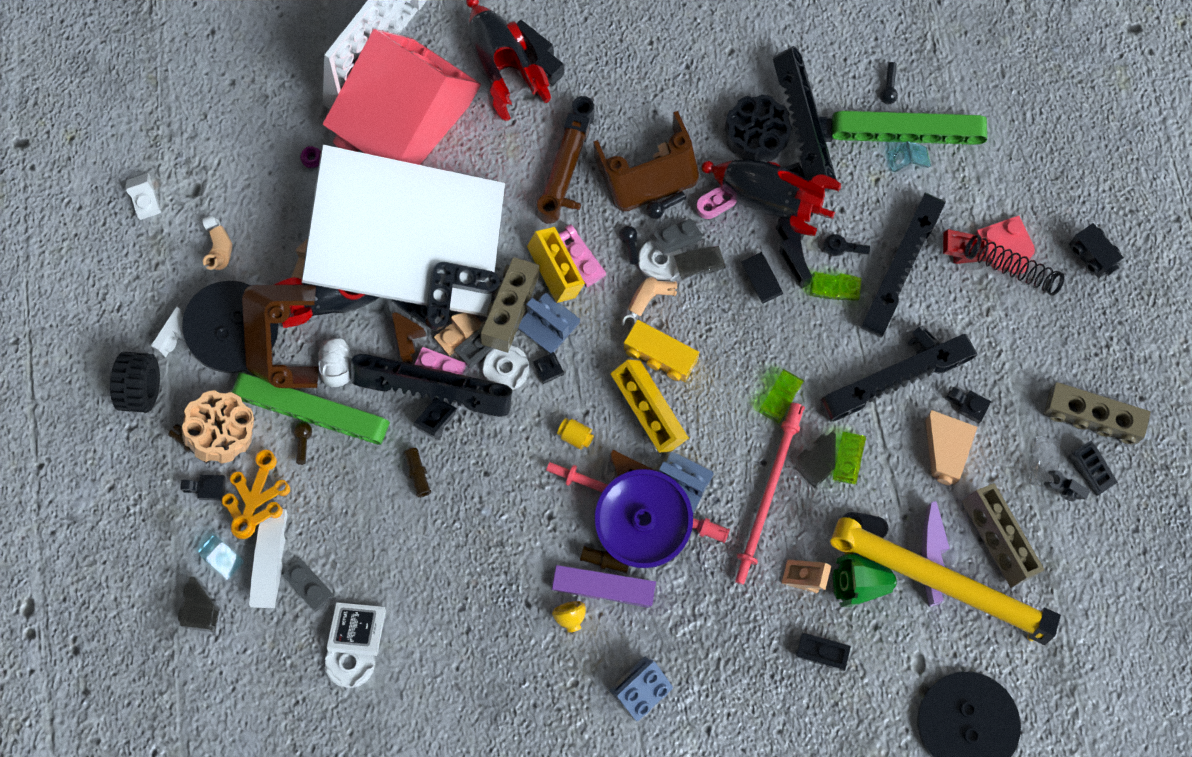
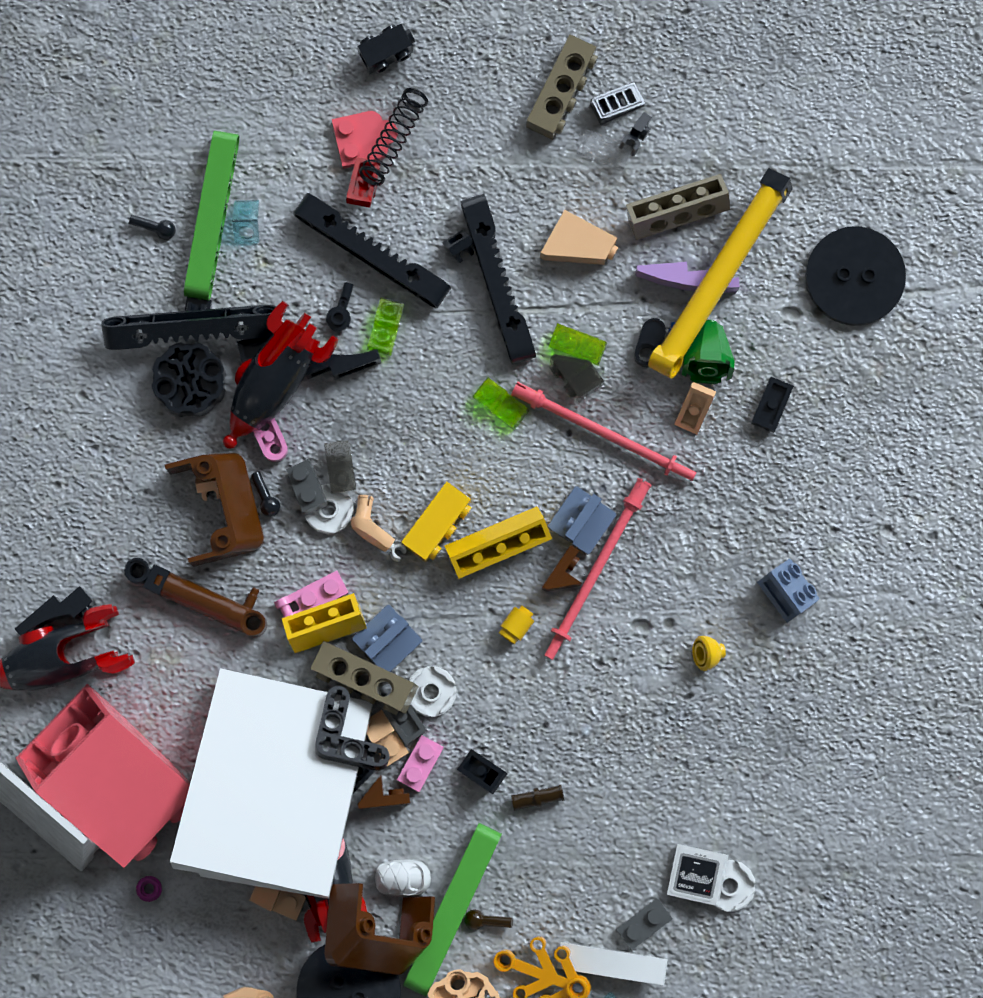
camera: 90 degrees left, 10 degrees up
(491, 396) = (422, 838): black gear -> none
(548, 368) = (437, 645): black tile -> none
(602, 559) = (654, 610): dark brown pin -> none
(604, 586) = (682, 614): medium lavender slope -> none
(628, 235) = (294, 540): black bar -> none
(643, 518) = (621, 563): dark purple dish -> none
(762, 278) = (366, 402): black slope -> none
(971, 405) = (535, 210): black plate -> none

